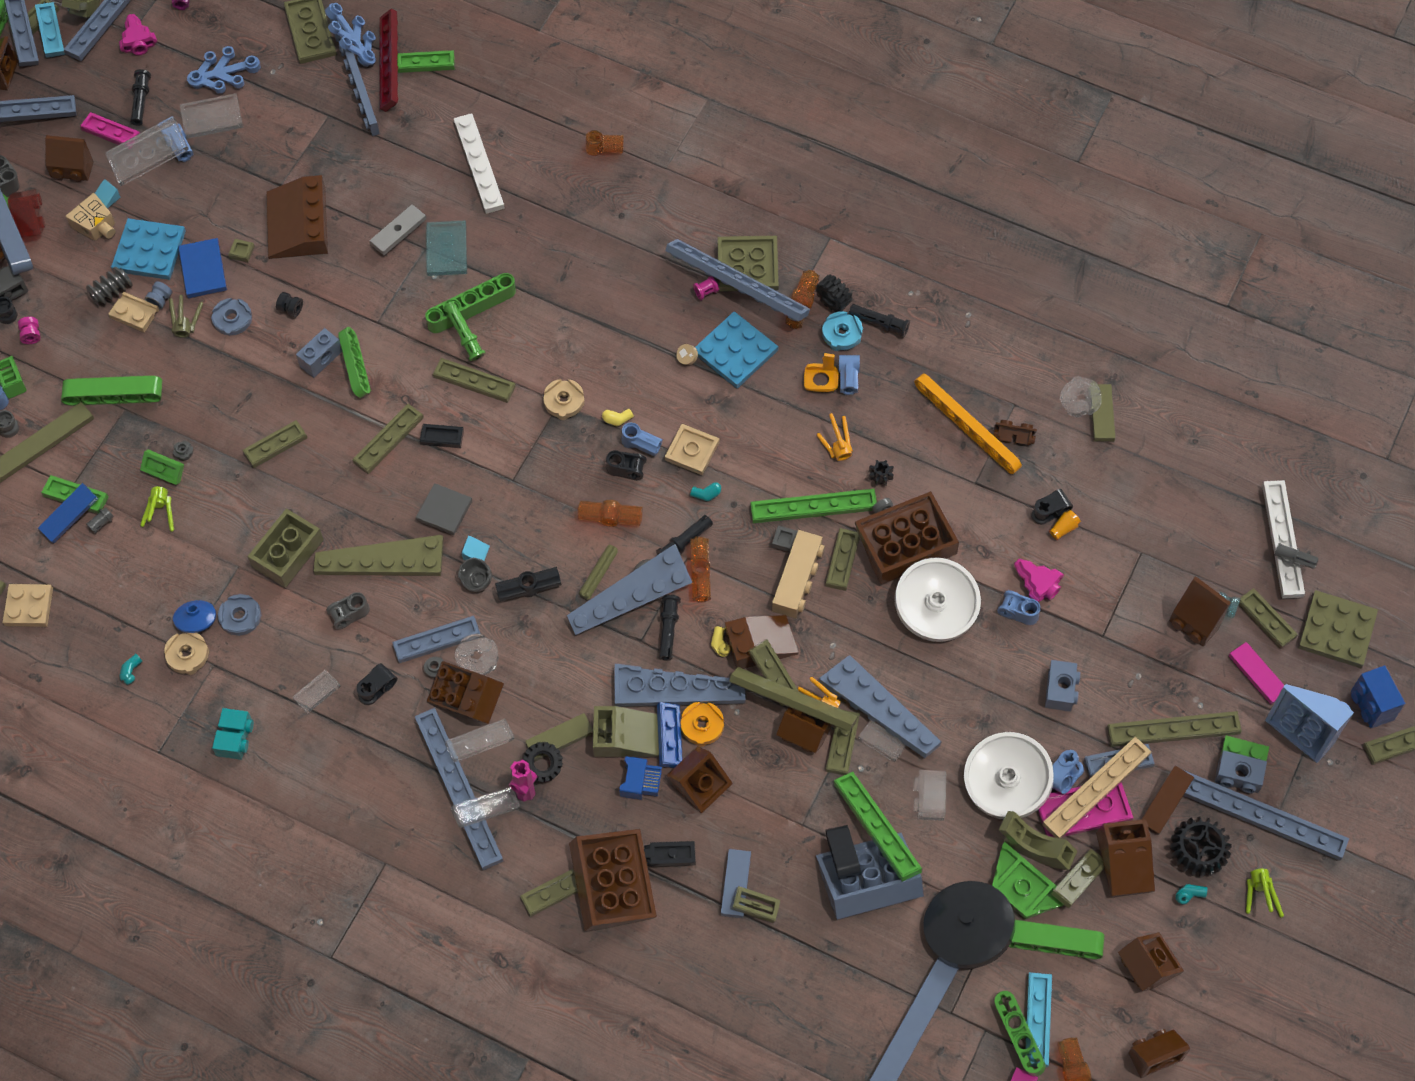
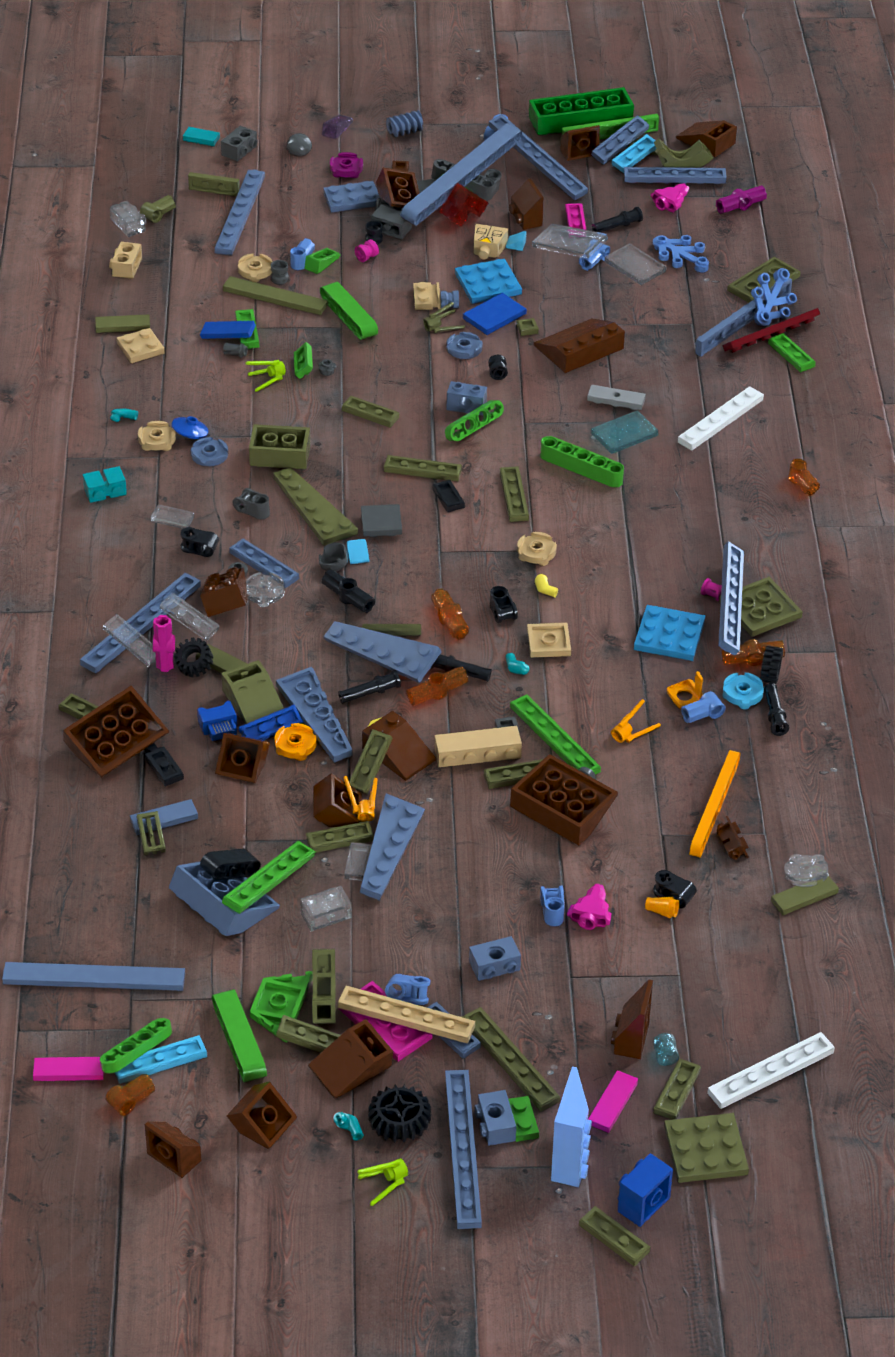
camera: 60 degrees right, 20 degrees down
(108, 285) = (436, 272): dark grey piece -> none
(468, 339) = (544, 470): bright green pin -> none
(642, 440) = (532, 604): medium blue piece -> none
(687, 354) = (638, 603): tan tile -> none
(793, 699) = (350, 778): olive tile -> none
(881, 472) = (618, 763): black gear -> none
(937, 599) = (517, 841): white dish -> none
(969, 924) = (216, 973): black dish -> none
(1008, 775) = (377, 949): white dish -> none
(1167, 799) = (429, 1070): reddish brown tile -> none
(1296, 556) = (753, 1076): dark grey axle -> none

